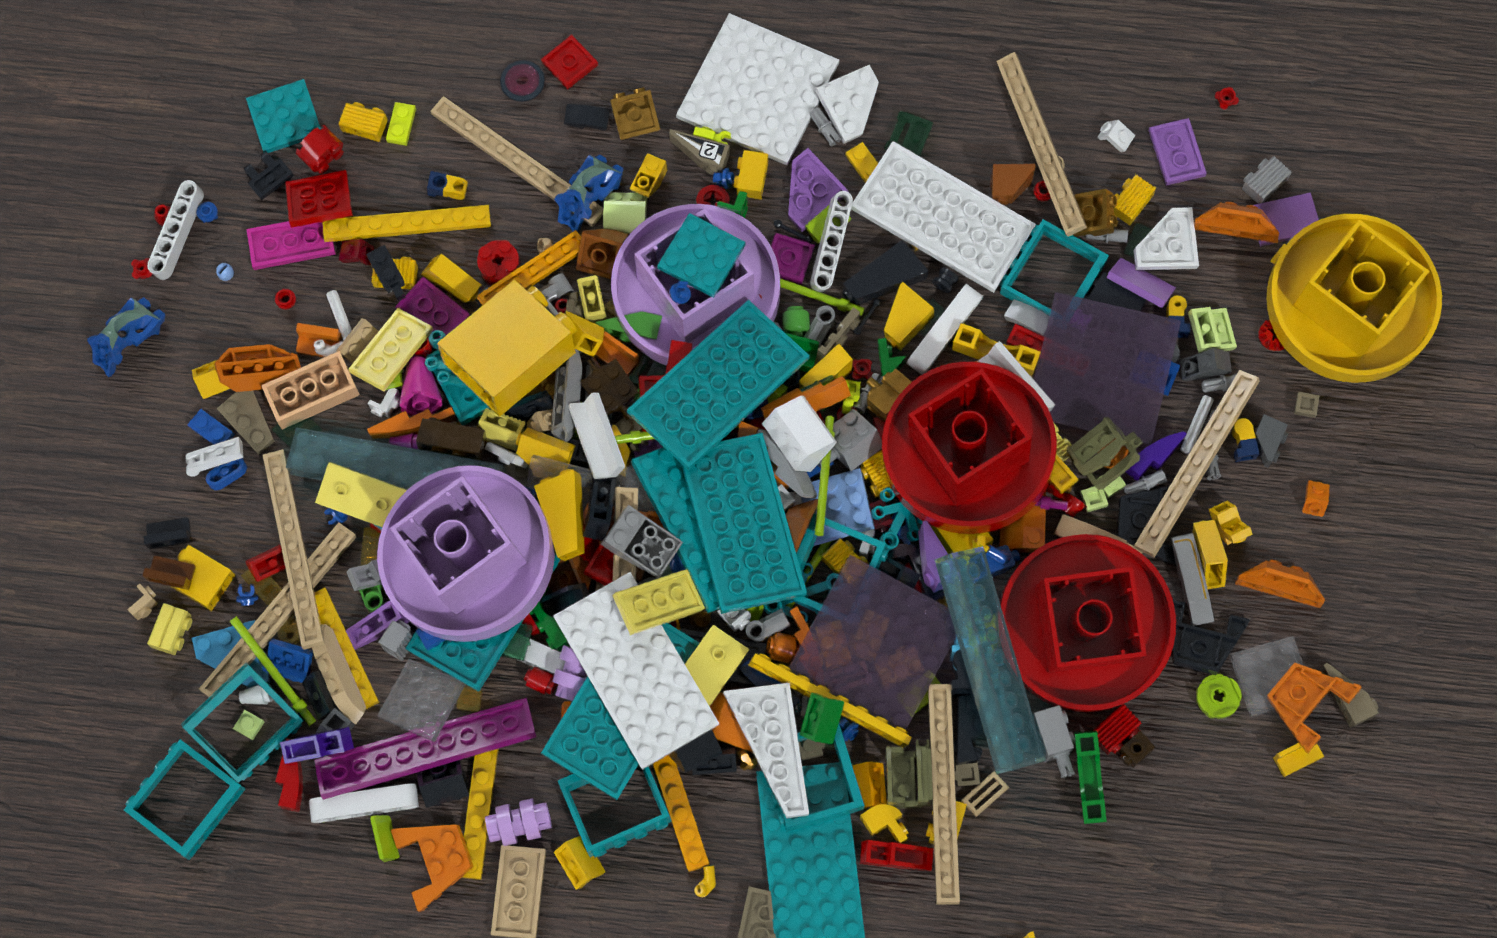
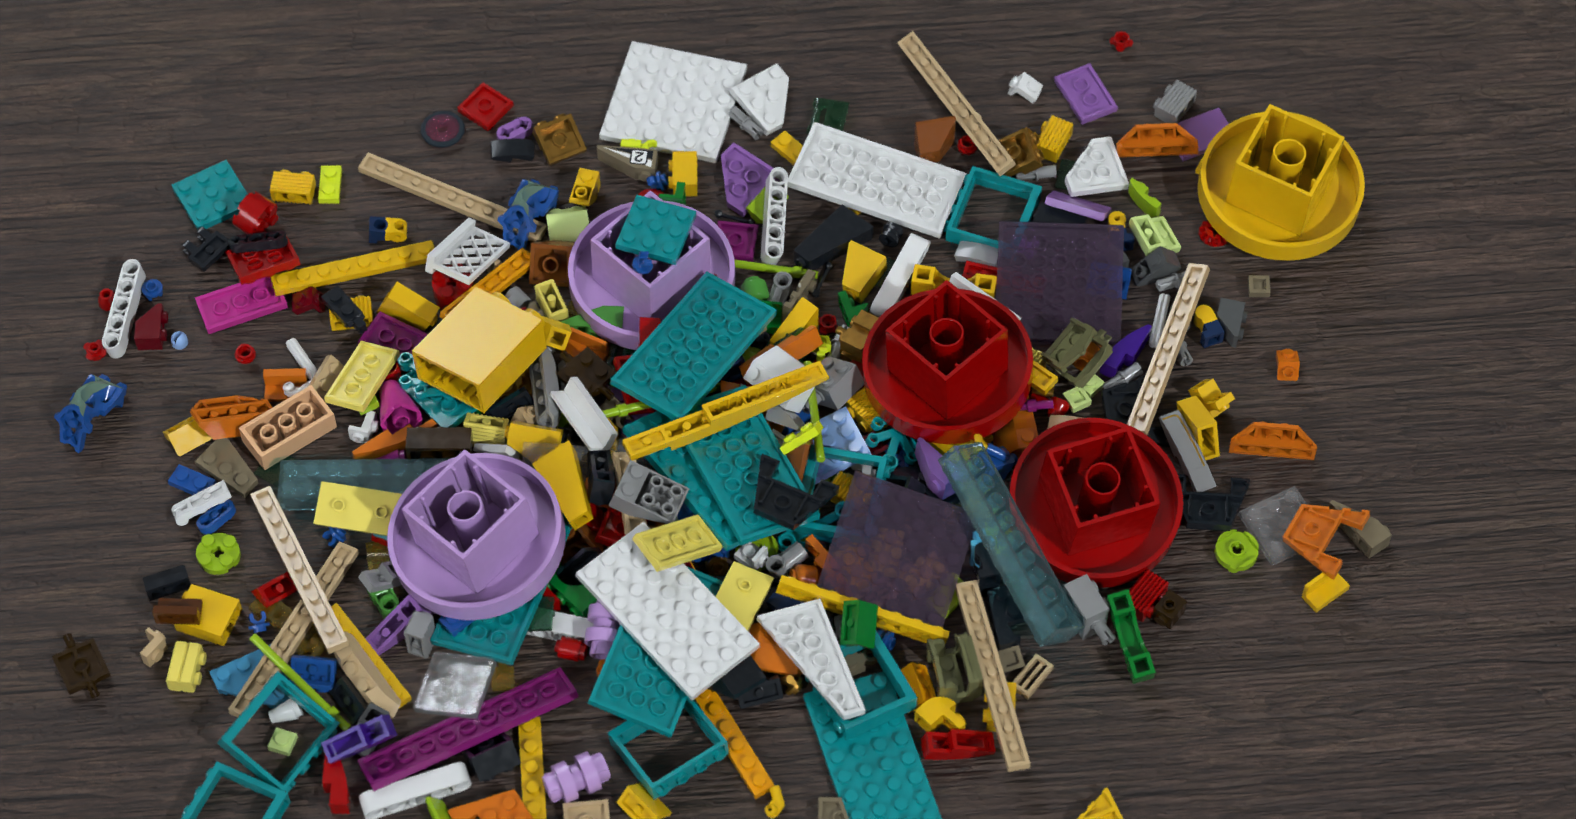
camera: 15 degrees left, 15 degrees down
(72, 609) = (81, 666): none -> dark brown plate
(198, 256) = (150, 329): none -> dark red slope
(228, 521) = (213, 542): none -> lime plate
(330, 180) = (258, 241): none -> black beam
(503, 221) = (455, 244): none -> white fence
(593, 94) = (514, 130): none -> medium lavender beam
(734, 467) = (725, 411): none -> yellow slope
(772, 577) = (786, 503): none -> black wing
(804, 506) = (807, 432): none -> neon yellow plate
(1207, 278) = (1139, 193): none -> lime slope

